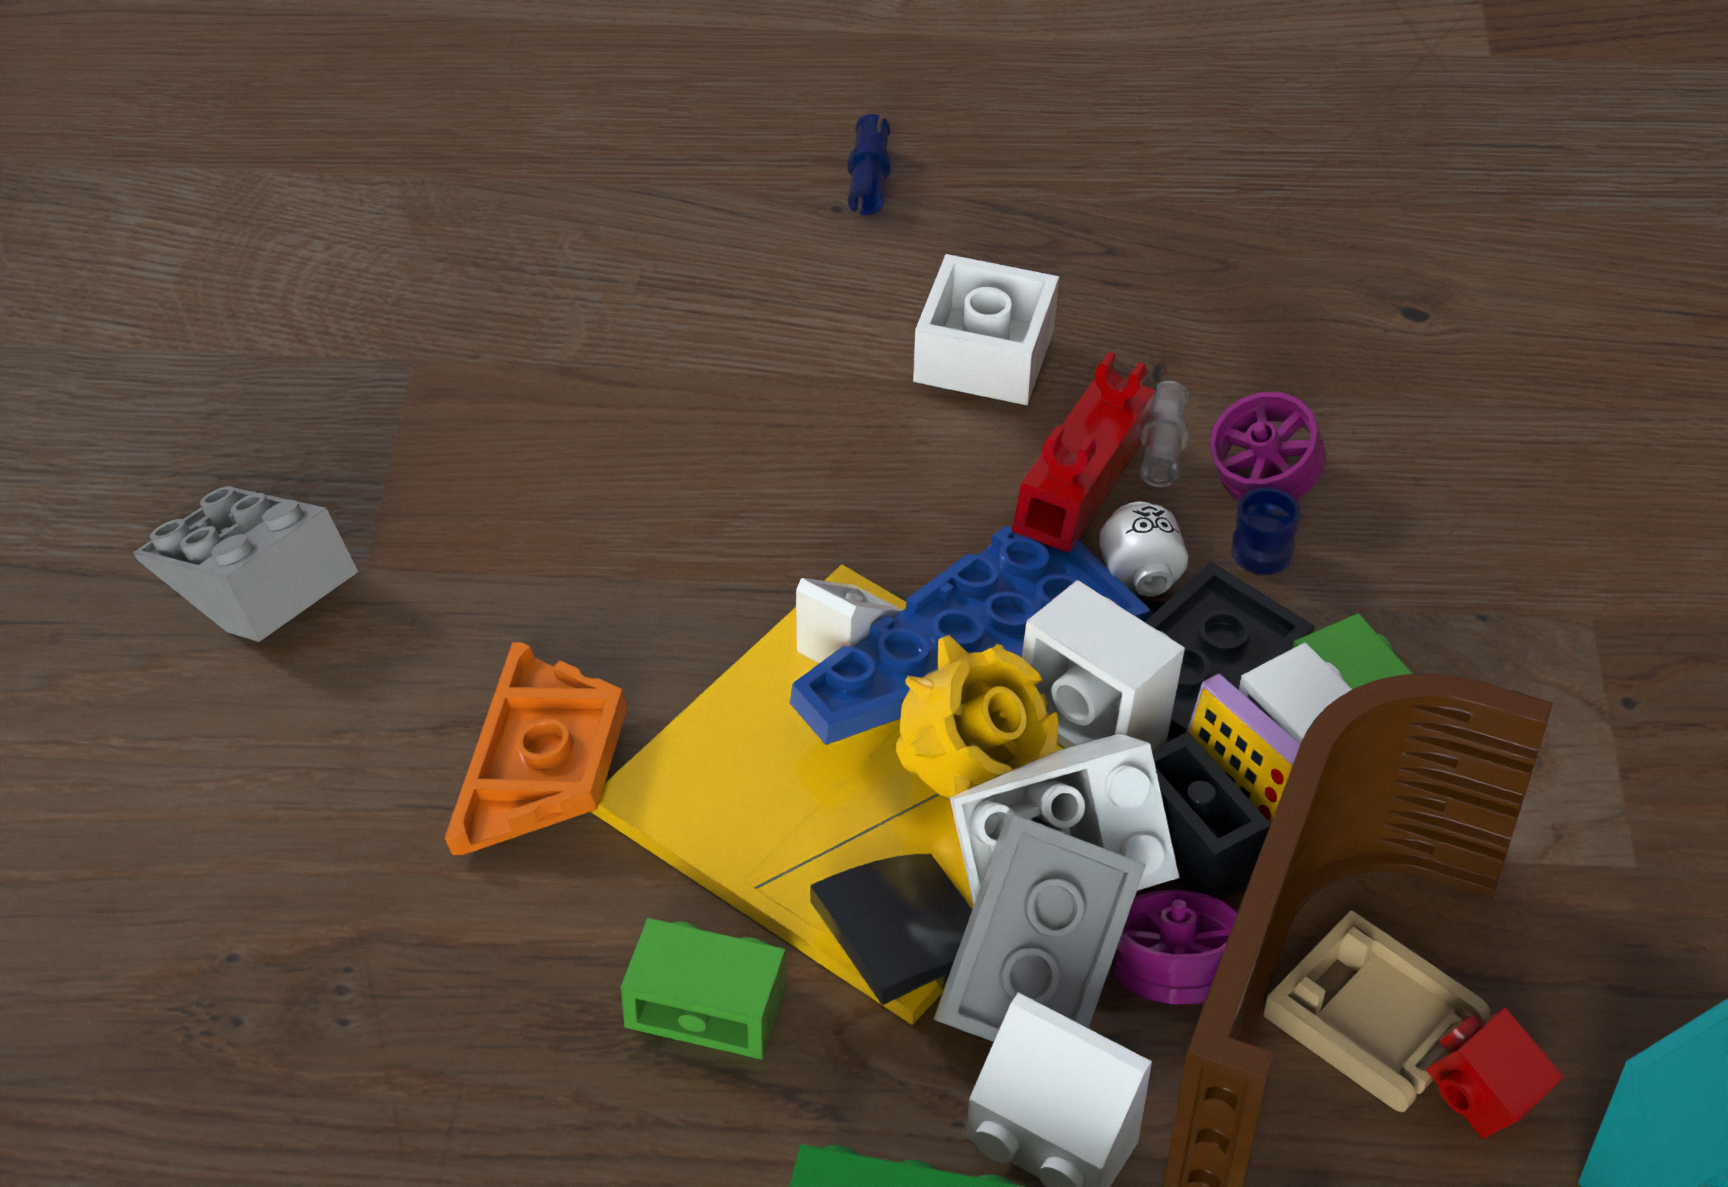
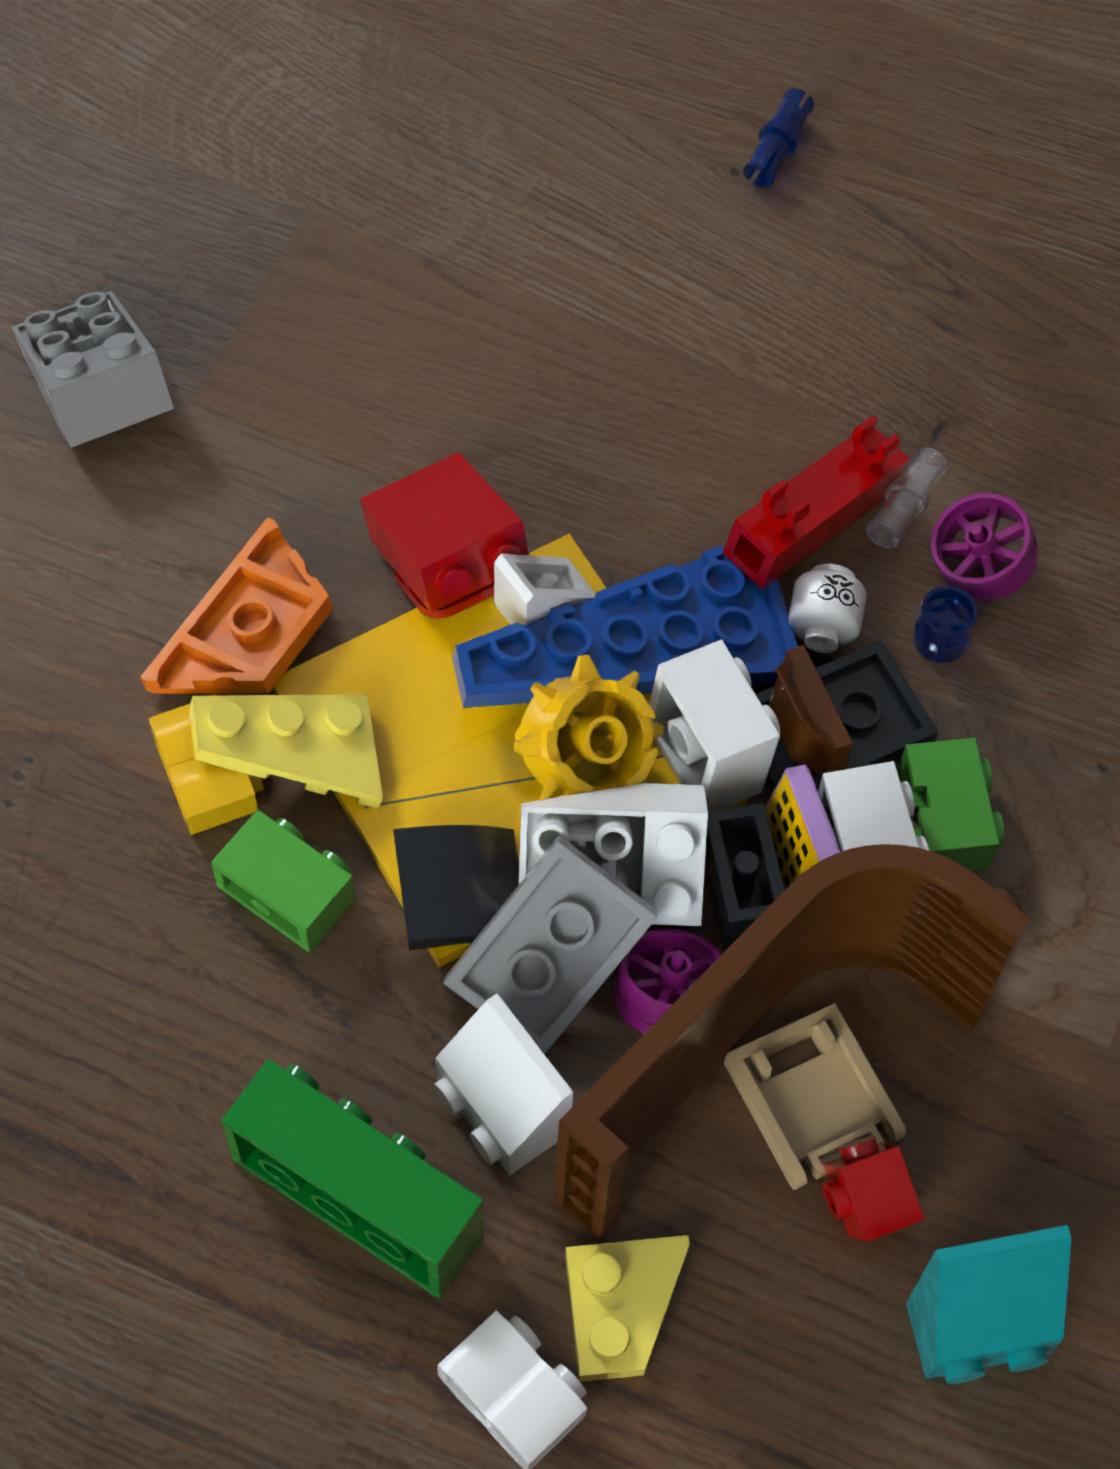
camera: 20 degrees right, 15 degrees up
(558, 901) = (203, 791): none -> yellow brick
(658, 831) = (296, 737): none -> light yellow wing
(718, 596) = (443, 535): none -> red brick
(985, 329) = (794, 345): white brick -> none
(1207, 643) = (807, 716): none -> reddish brown slope

